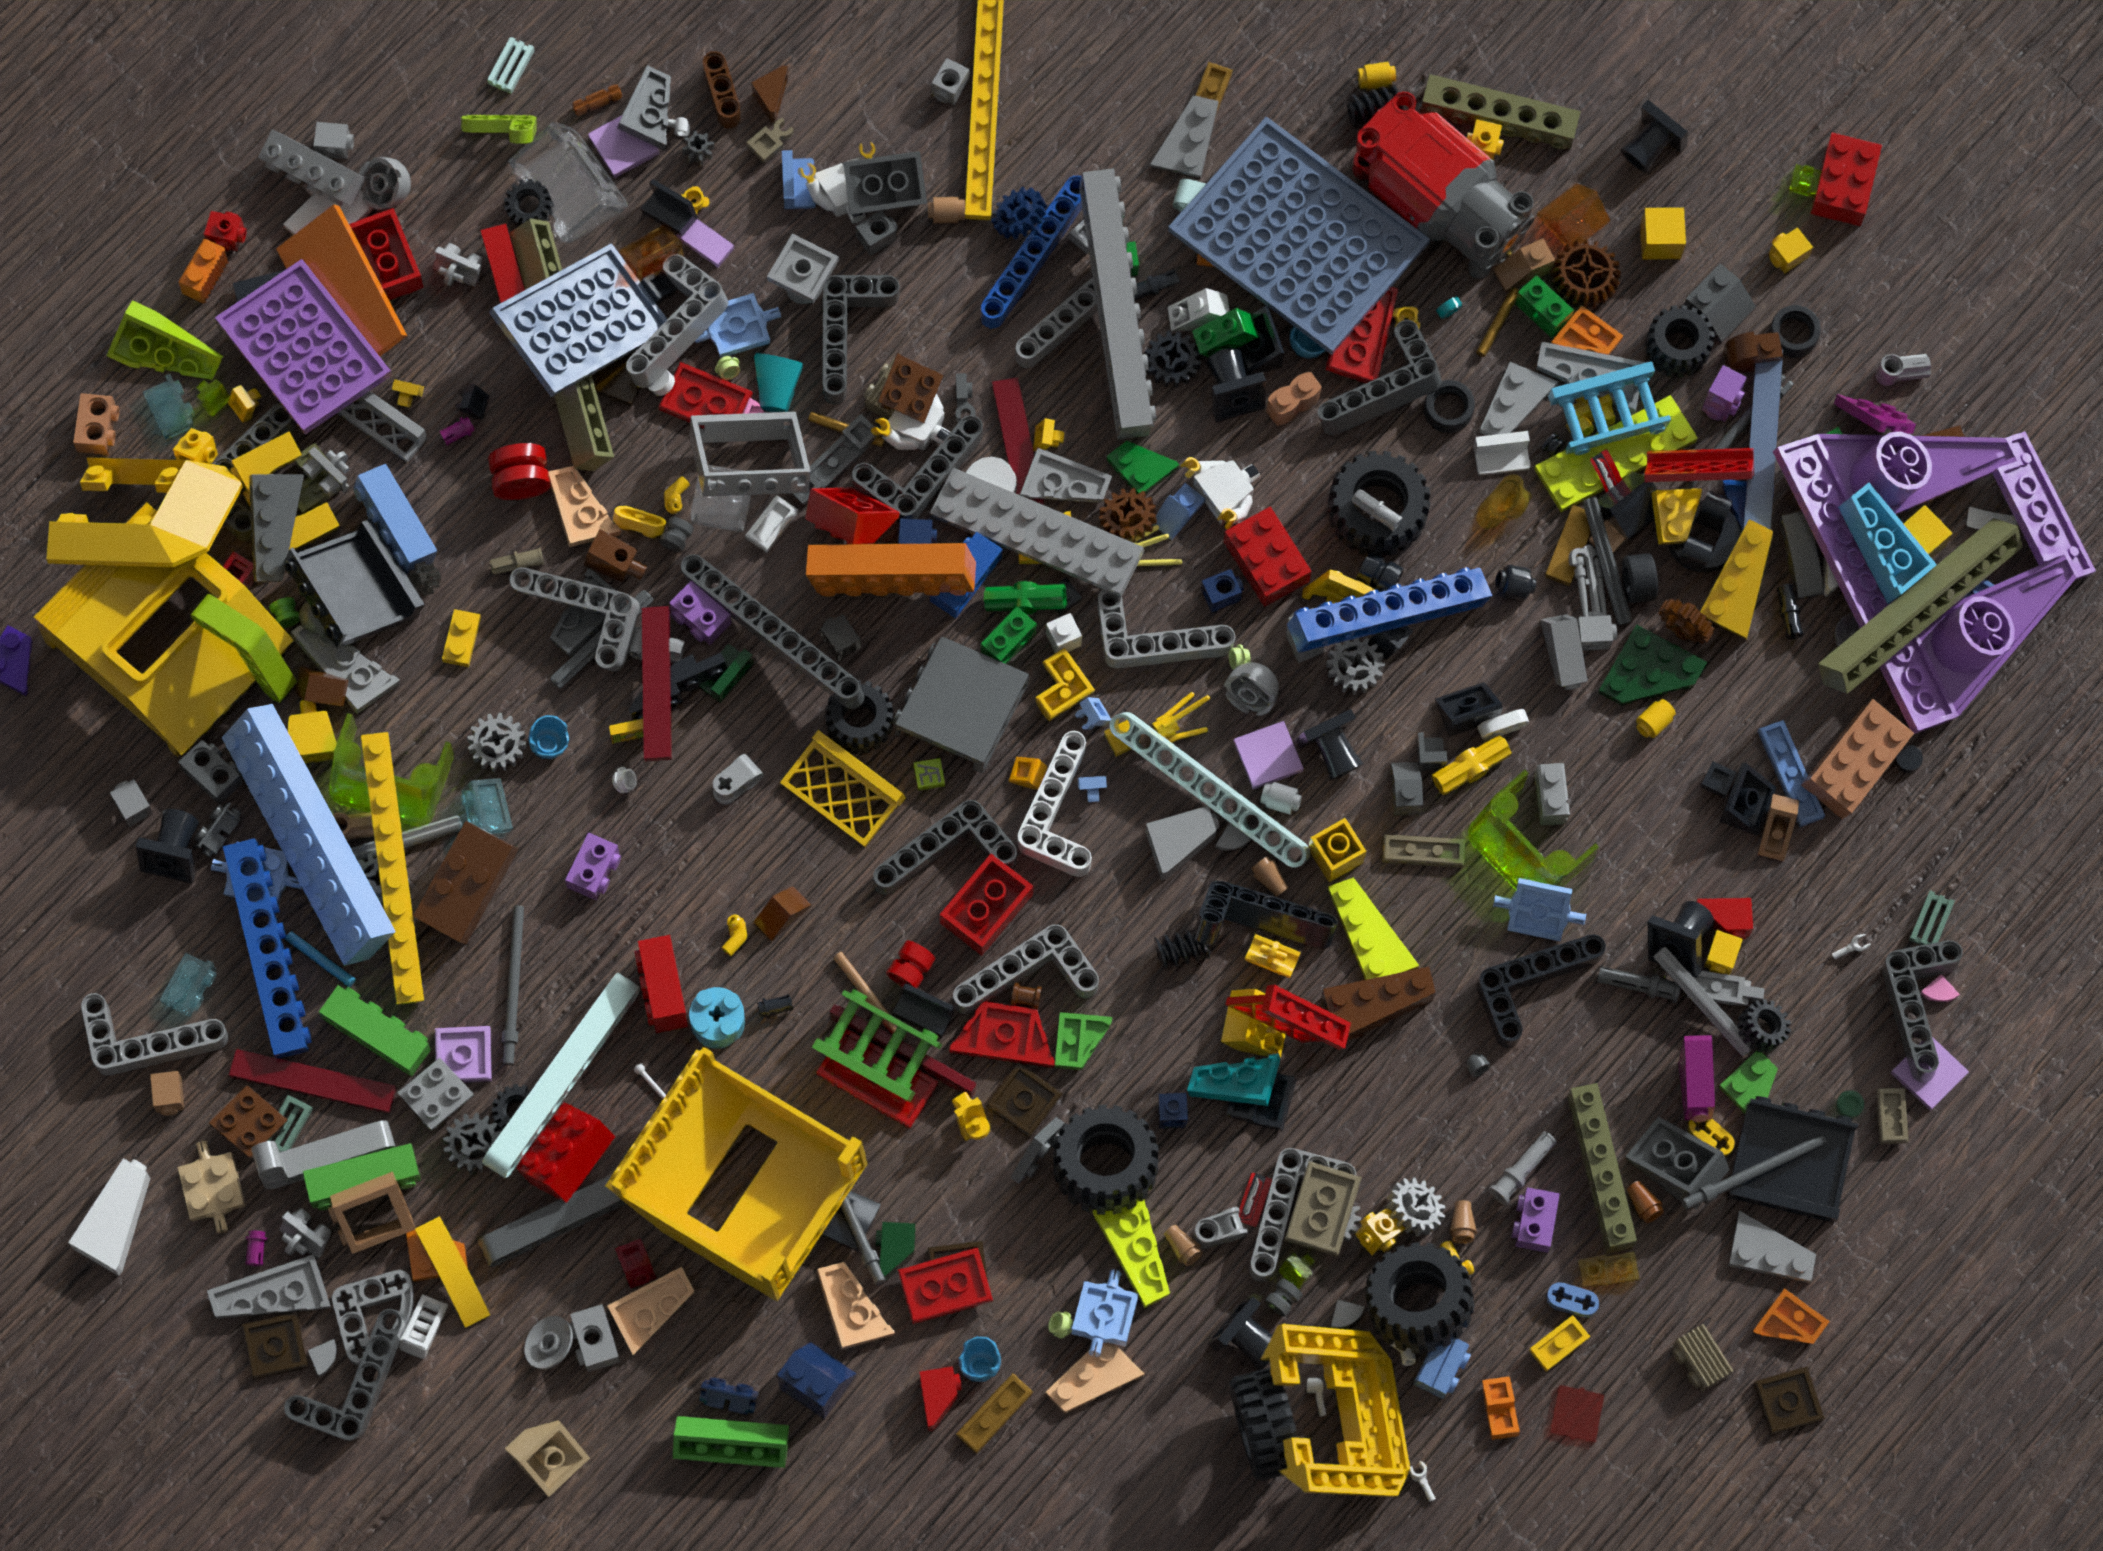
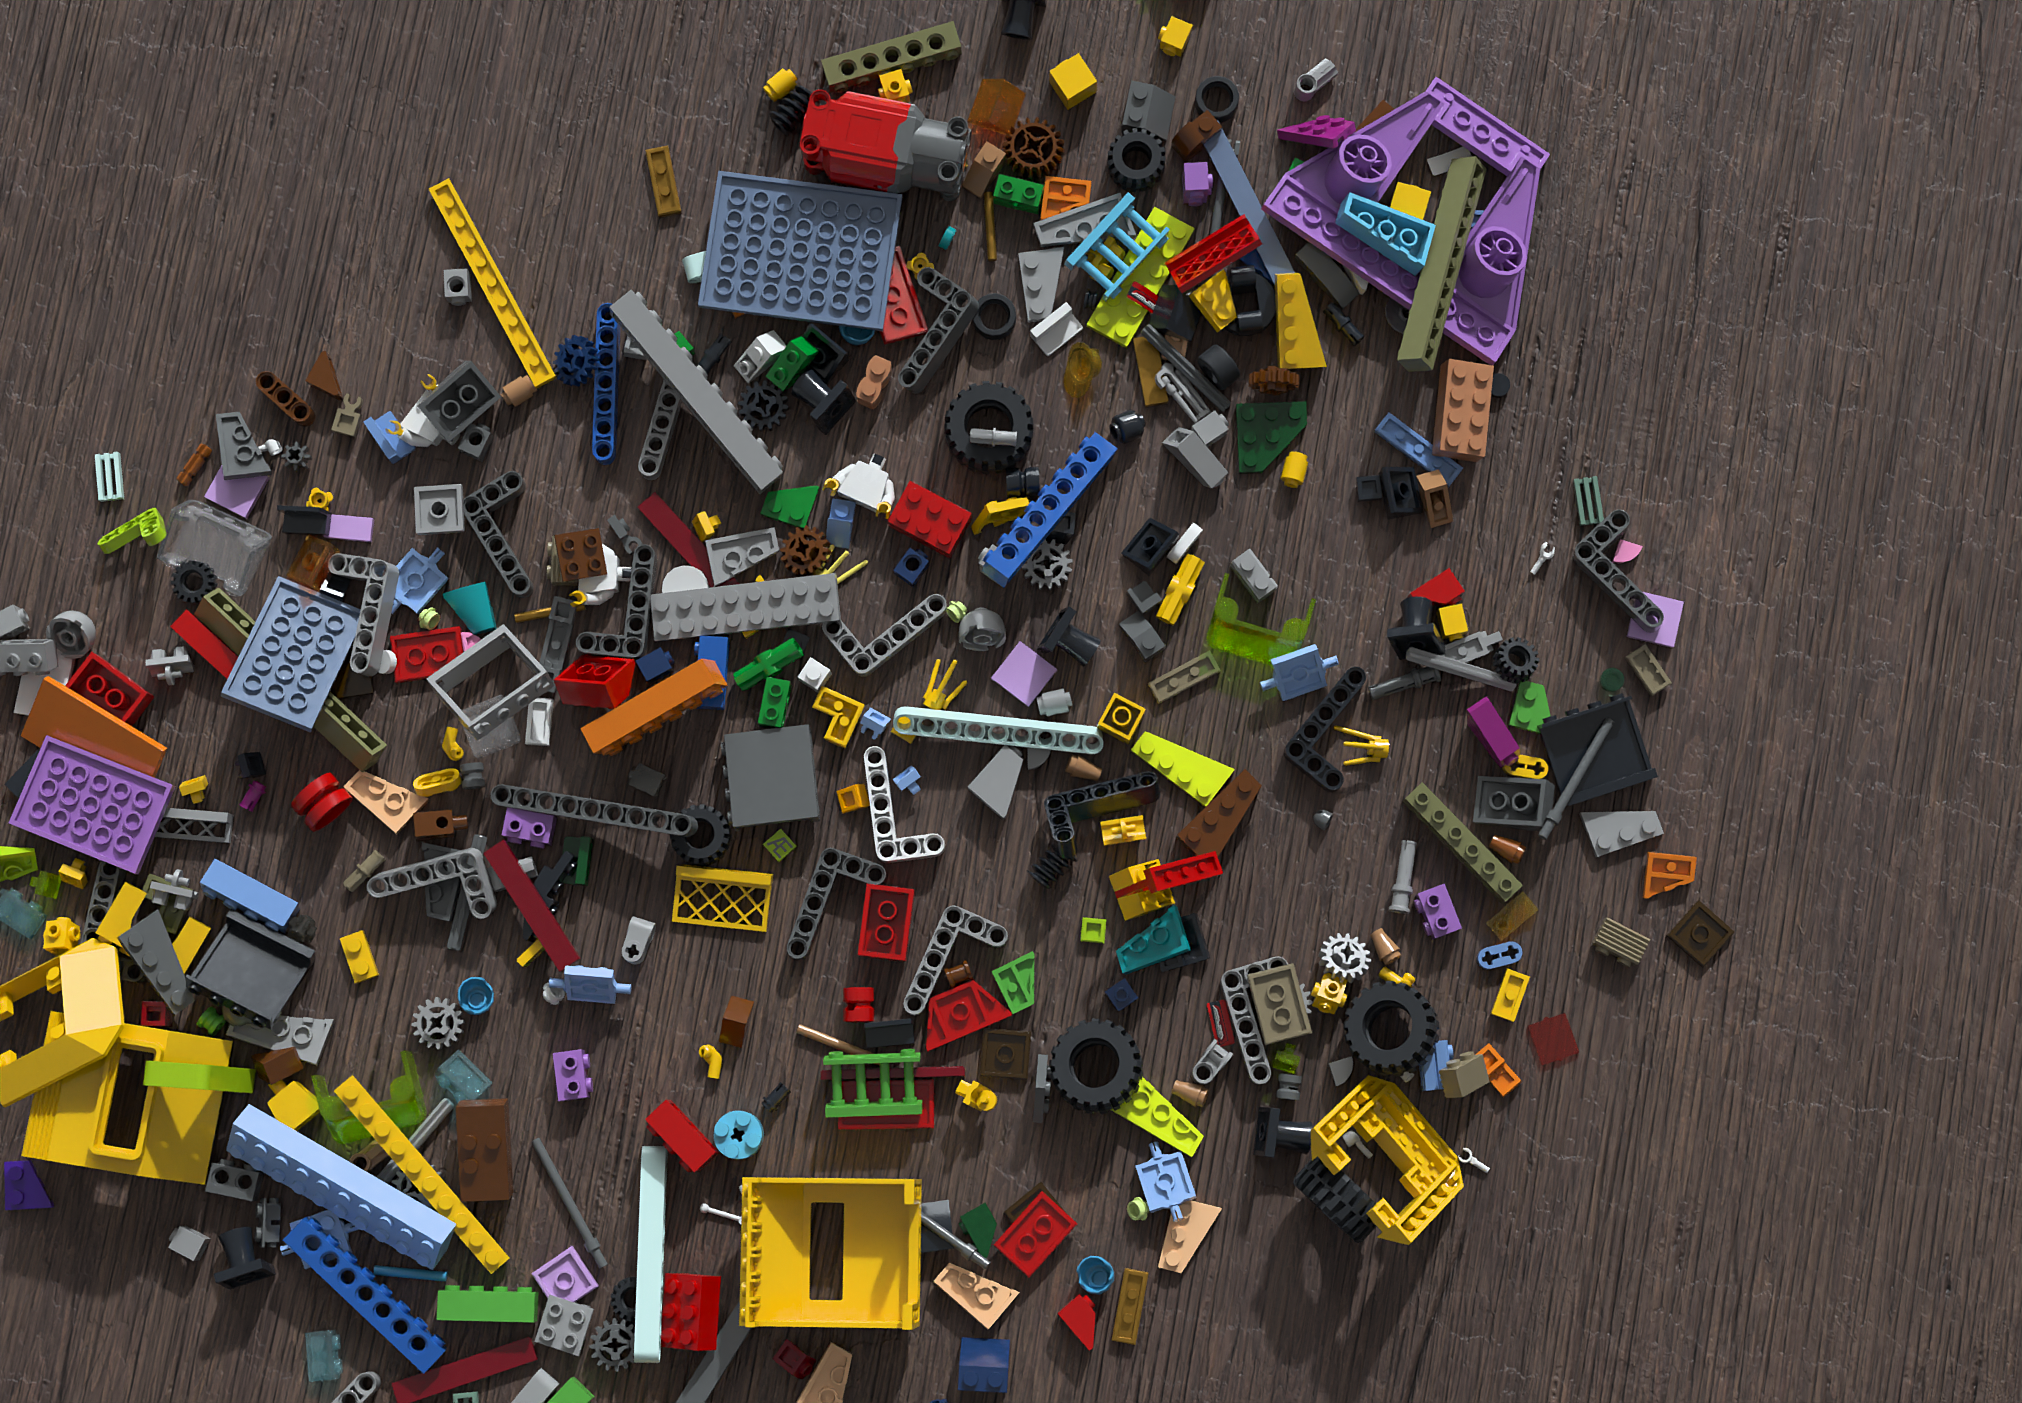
camera: 25 degrees left, 10 degrees up
(664, 791) = (590, 984): none -> light blue plate
(1184, 1035) = (1093, 930): none -> lime tile
(1189, 139) = (668, 222): light grey wing -> none
(1464, 1387) = (1464, 1075): none -> dark tan brick
(1574, 1026) = (1376, 747): none -> yellow plant

